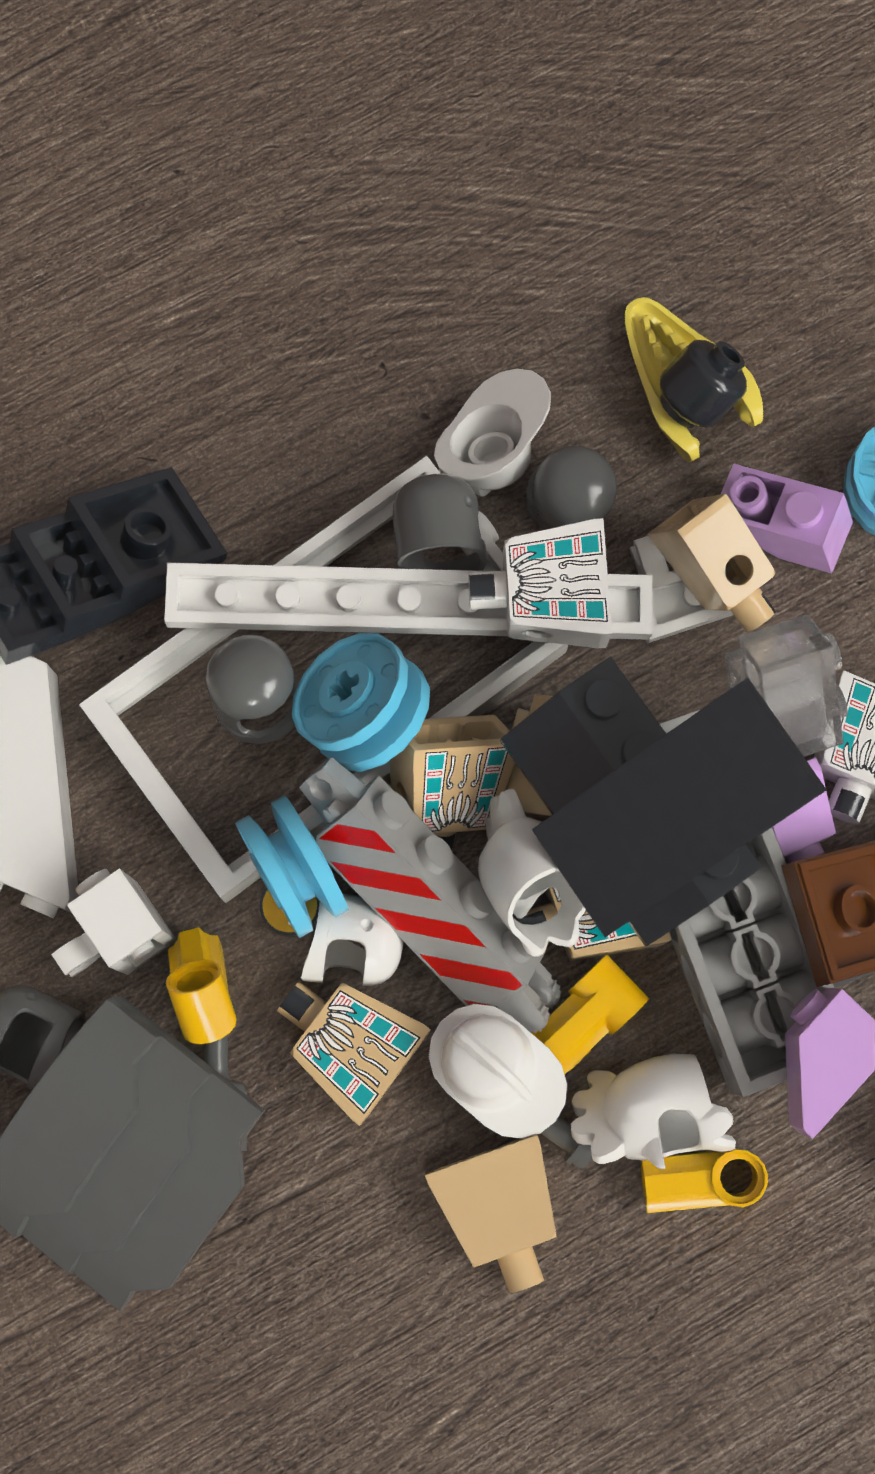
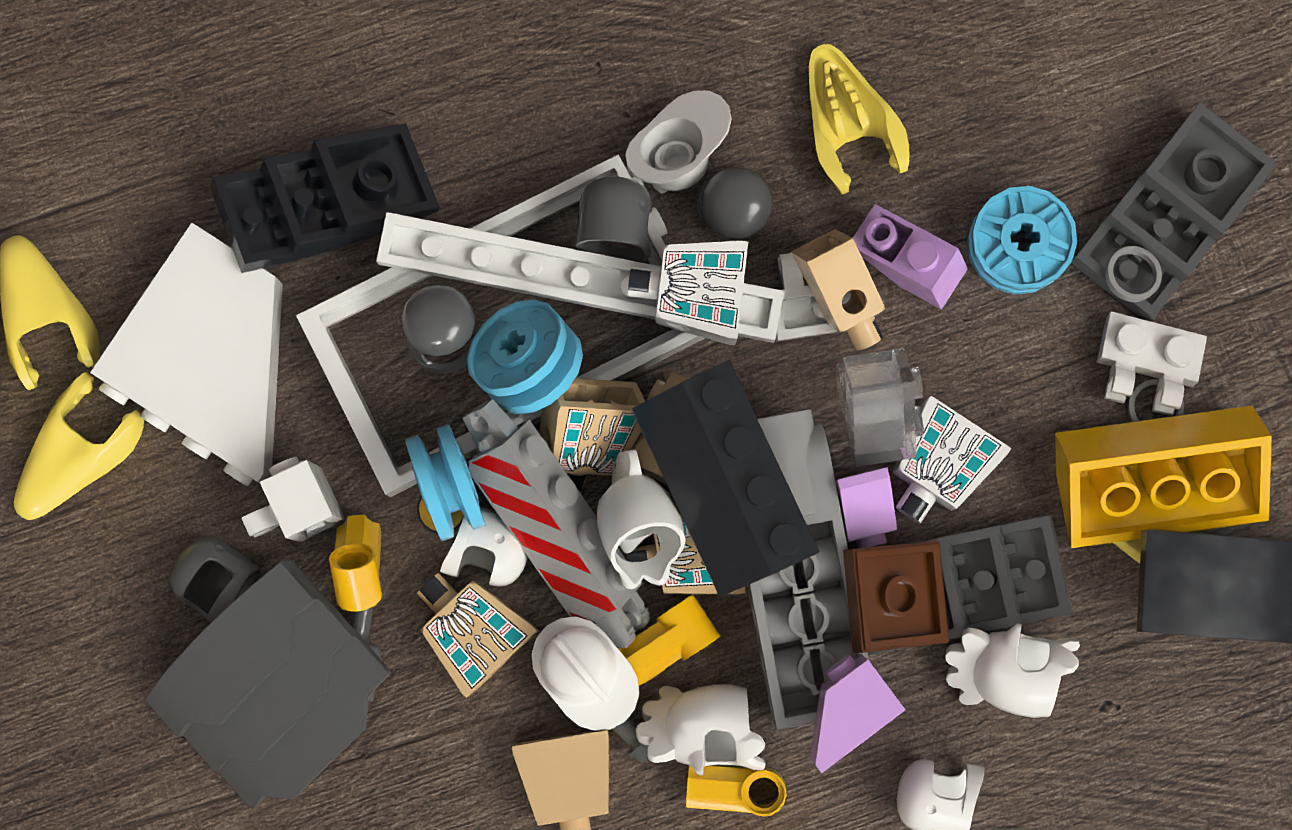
camera: 10 degrees right, 5 degrees up
(678, 807) = (757, 495): black slope -> none
(703, 383) = (860, 132): black head -> none

